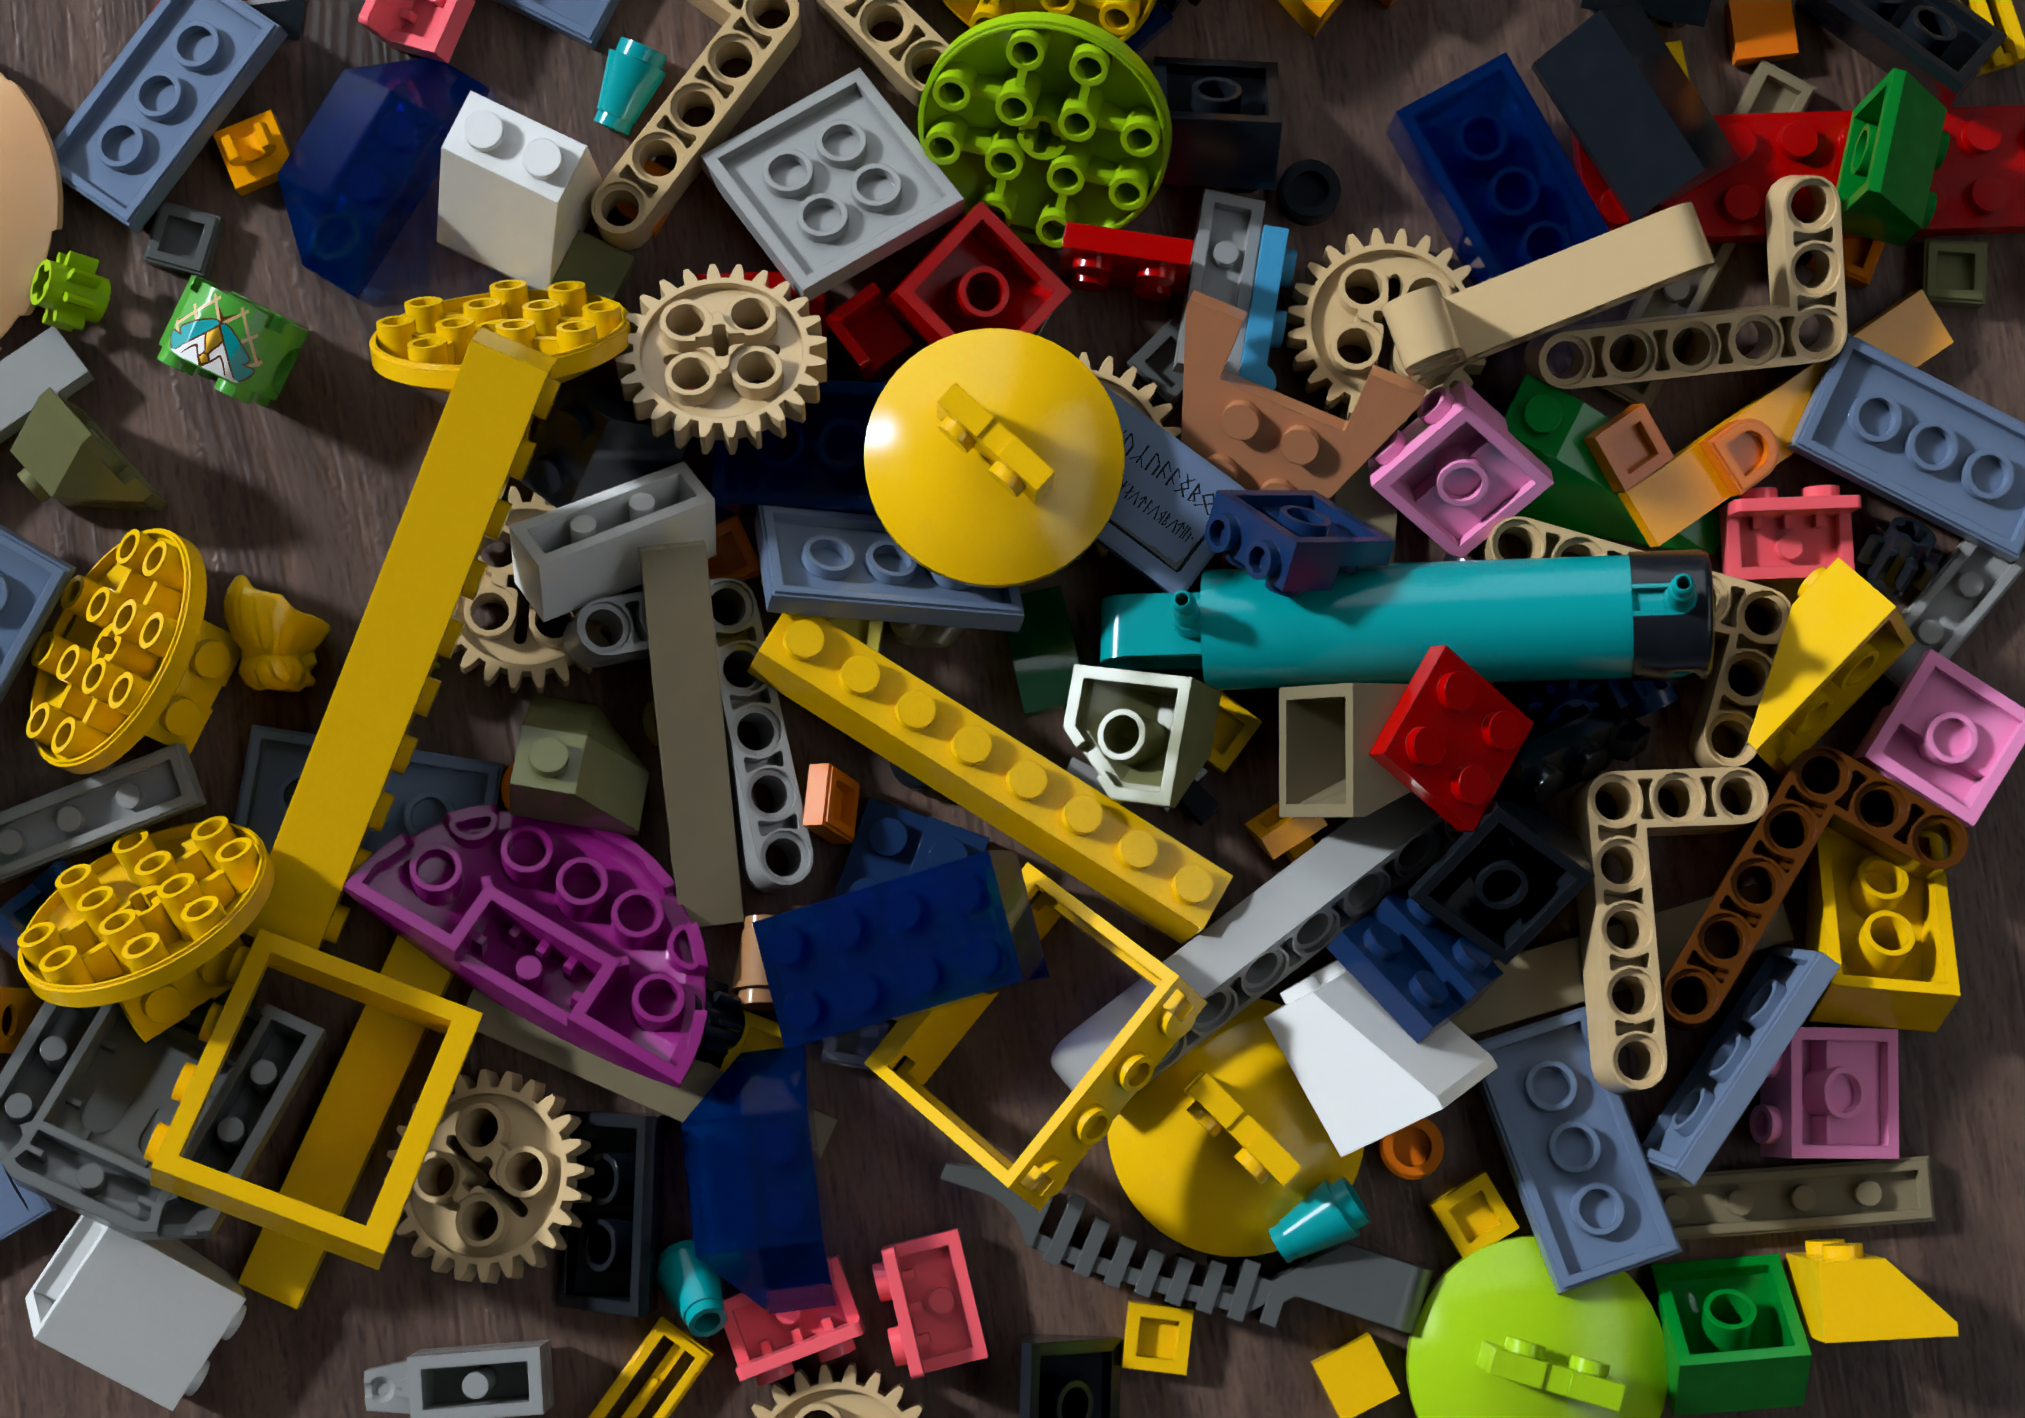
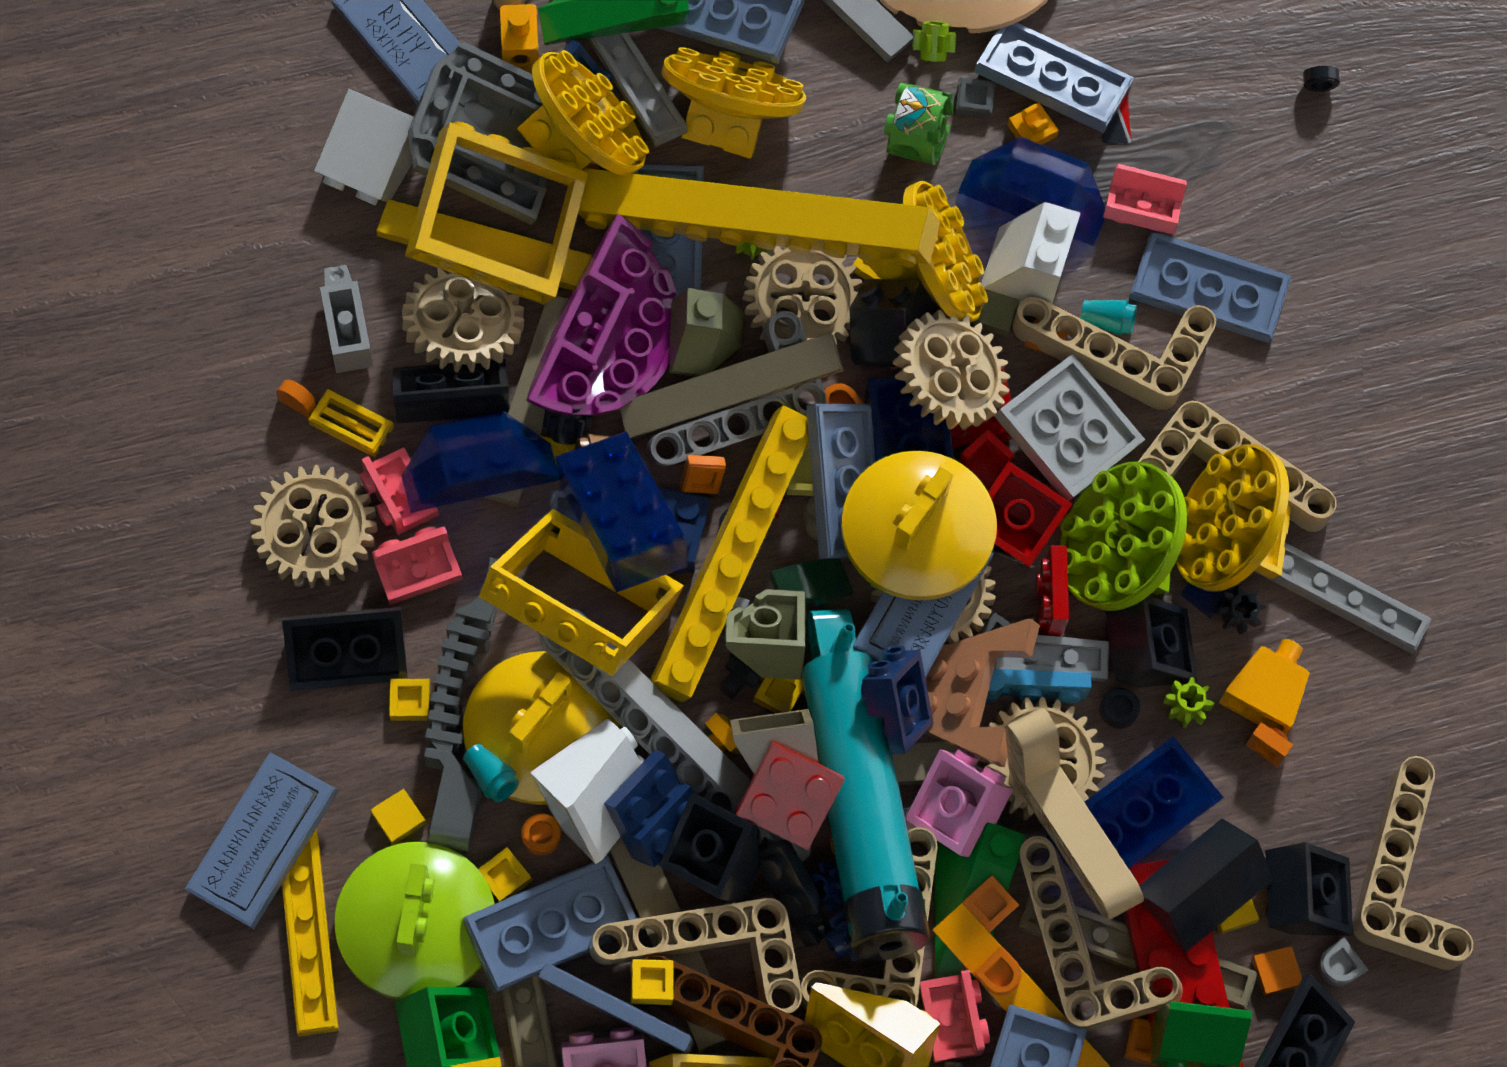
camera: 80 degrees right, 15 degrees down
(77, 462) = (840, 57): olive slope -> none
(273, 638) = (755, 164): yellow hair -> none
(593, 543) = (829, 308): white brick -> none
(691, 1289) = (409, 431): teal cone -> none
(1325, 63) = (1197, 699): none -> lime gear
(1715, 1002) = (652, 982): none -> yellow tile

